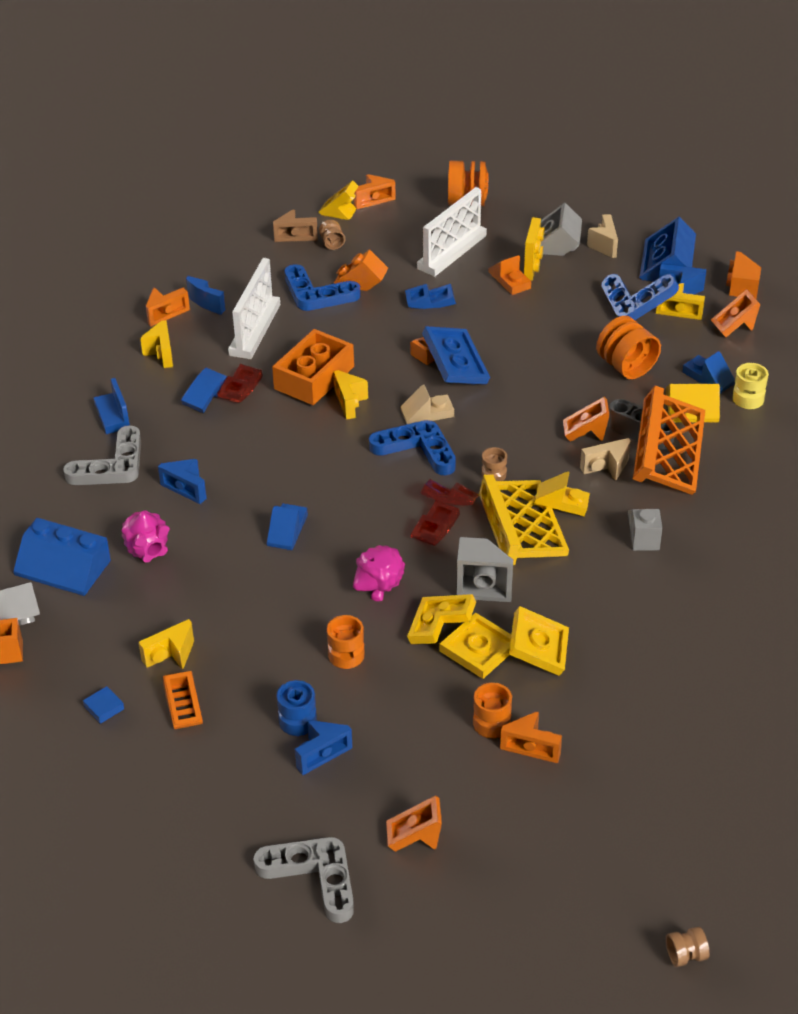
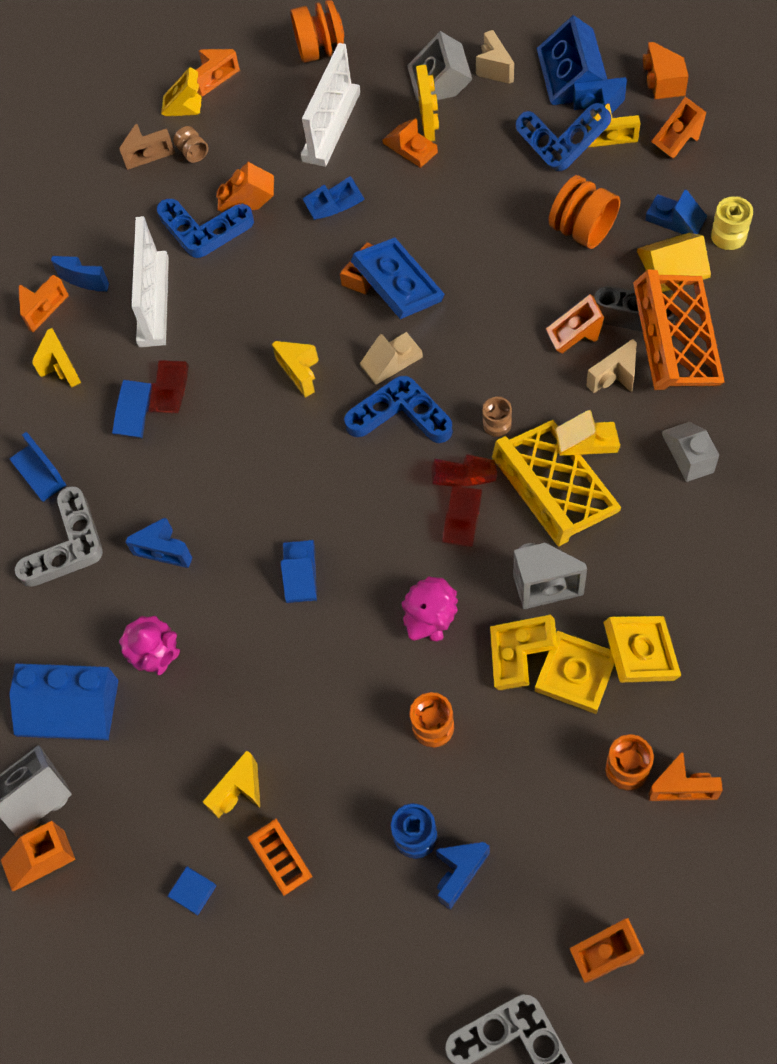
camera: 10 degrees left, 20 degrees up
(309, 366) = (243, 340): orange brick -> none

